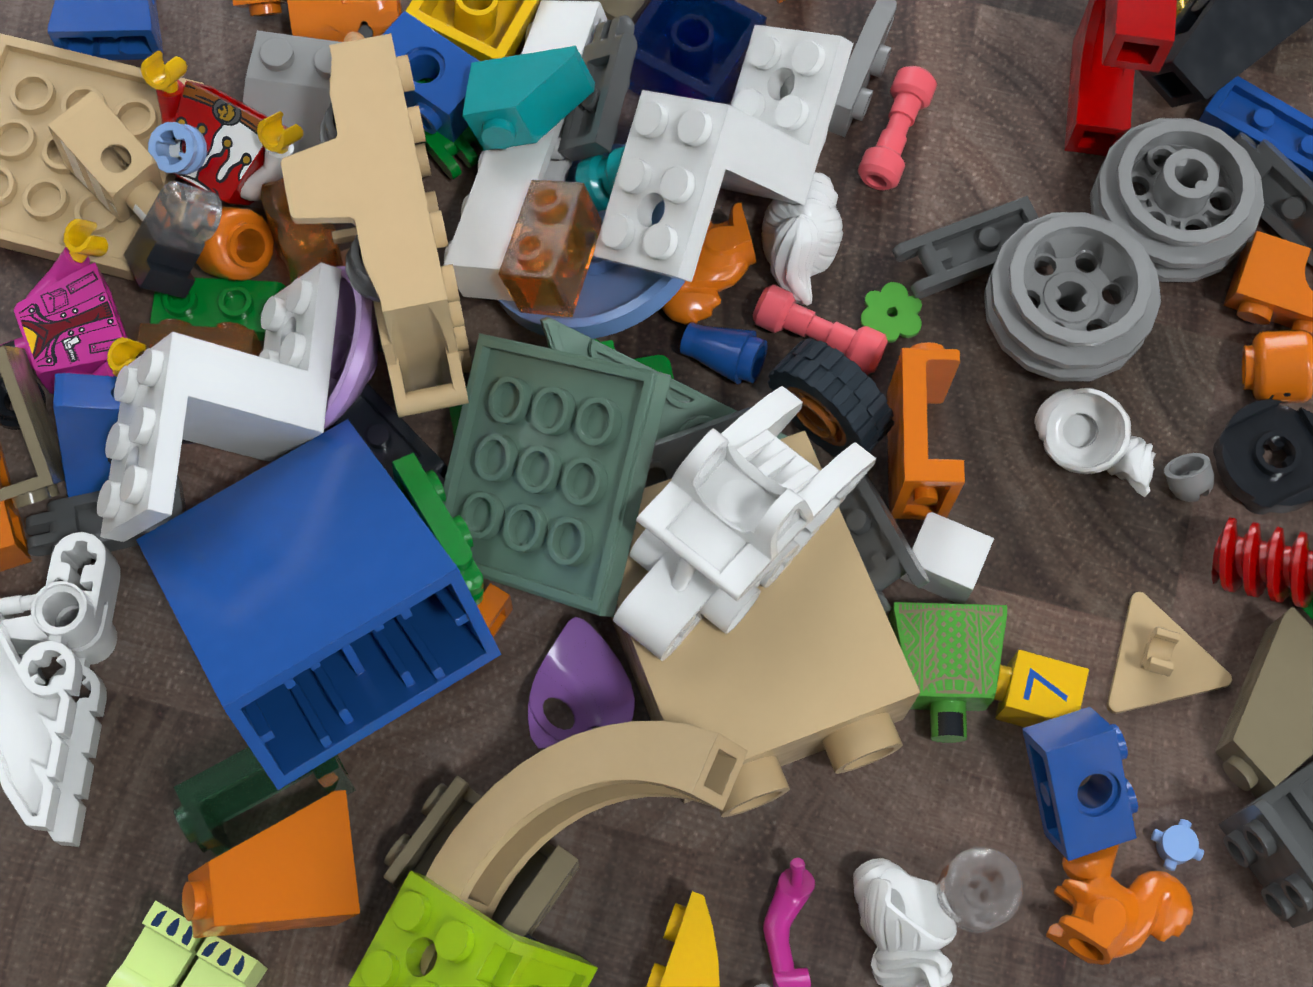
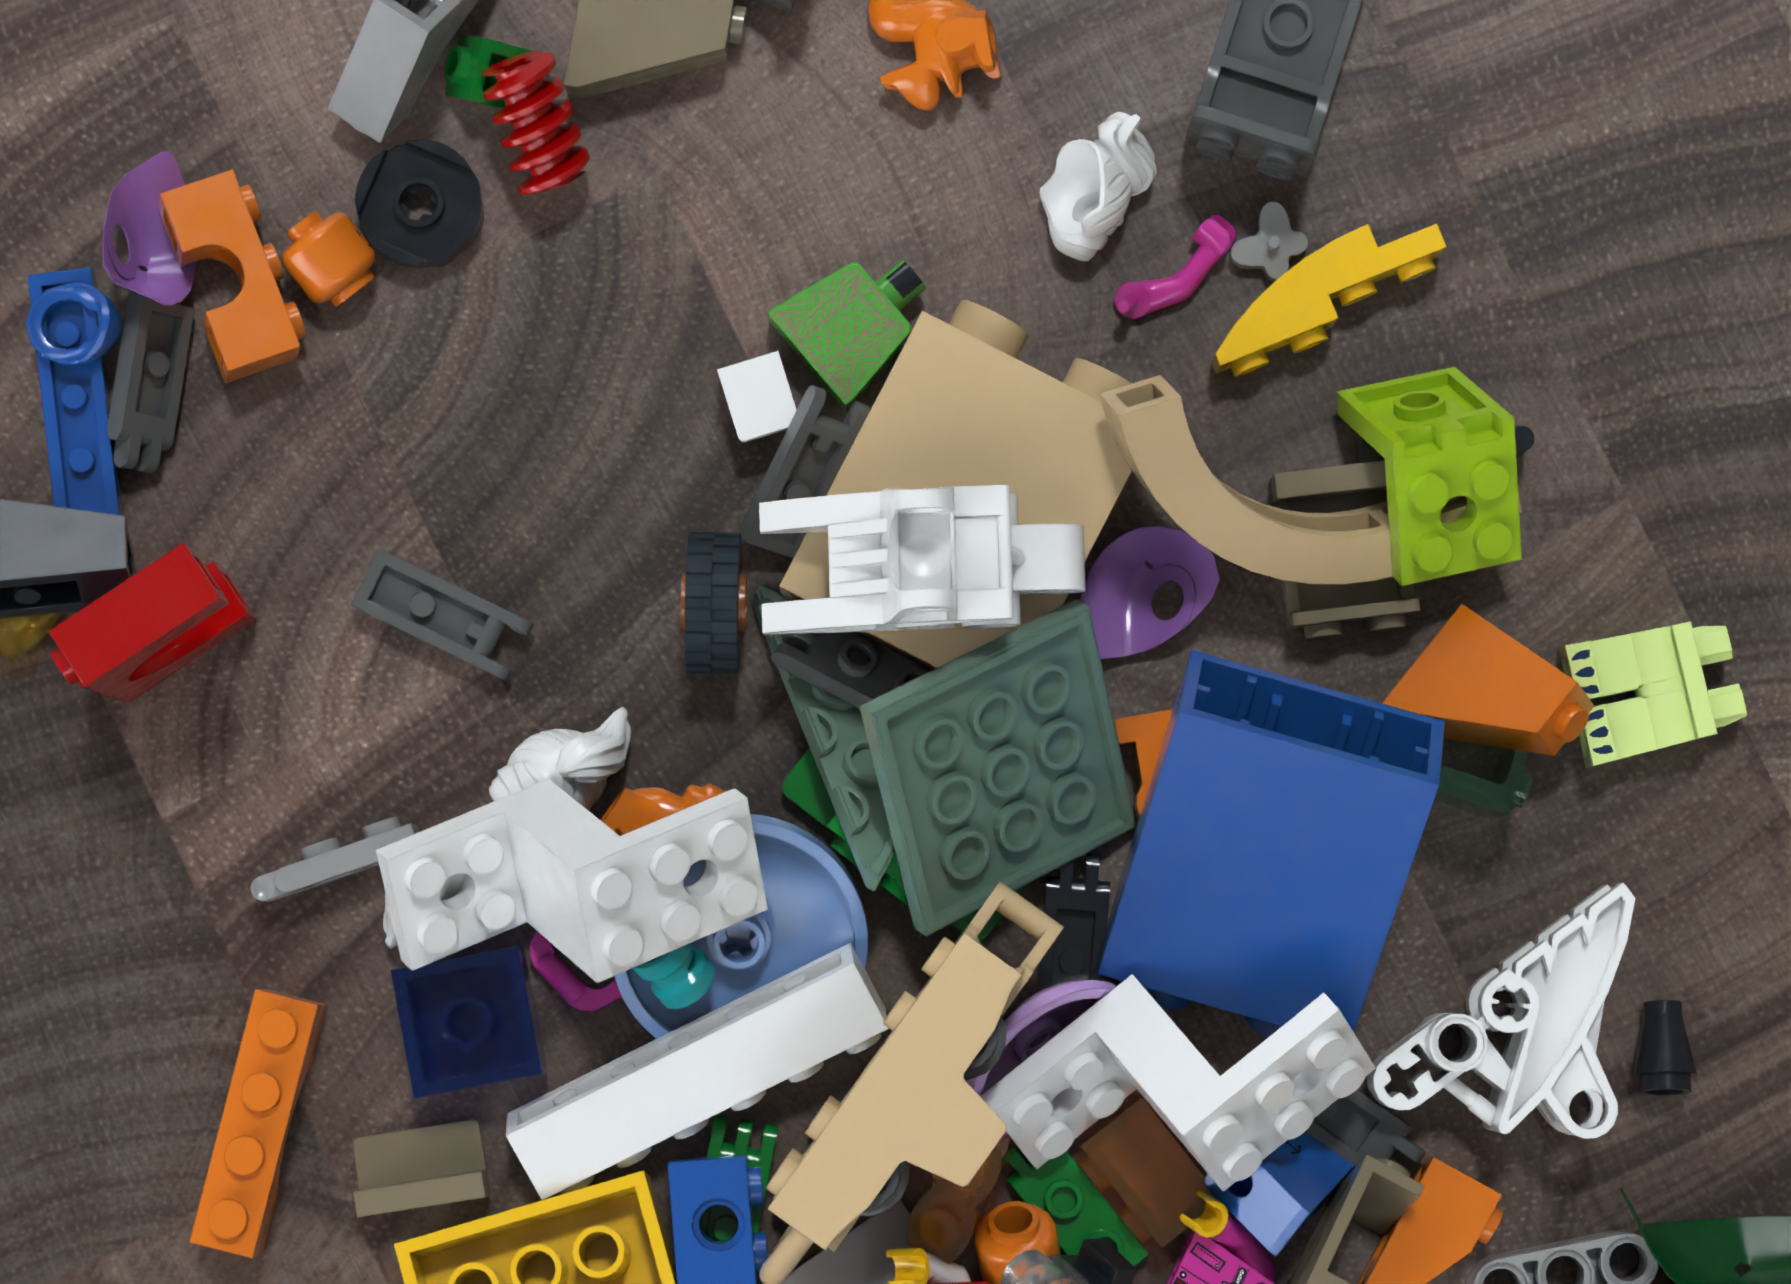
camera: 130 degrees left, 15 degrees up
(428, 498) = (1118, 809): green hinge -> none
(524, 95) = (680, 1099): teal slope -> none
(551, 248) = (792, 949): clear orange brick -> none
(594, 122) = (600, 1048): dark grey hinge -> none
(728, 351) = (731, 741): blue cone -> none
(778, 311) = (625, 629): coral piece -> none
(883, 164) = (326, 796): coral piece -> none
(892, 300) = (563, 614): bright green plant -> none
(914, 481) = (687, 513): orange panel -> none
(994, 876) = (1021, 129): clear head -> none
(1038, 689) = (811, 232): yellow brick -> none
(1056, 340) = (413, 416): light grey wheel -> none
(1060, 758) = (866, 138): blue brick -> none
(1092, 434) = (546, 362): white hair -> none
(1159, 661) = (688, 163): tan piece -> none
(1177, 844) = (837, 31): light blue piece -> none
(1181, 169) = (301, 503): light grey wheel -> none
(1190, 476) = (497, 274): light grey hinge -> none

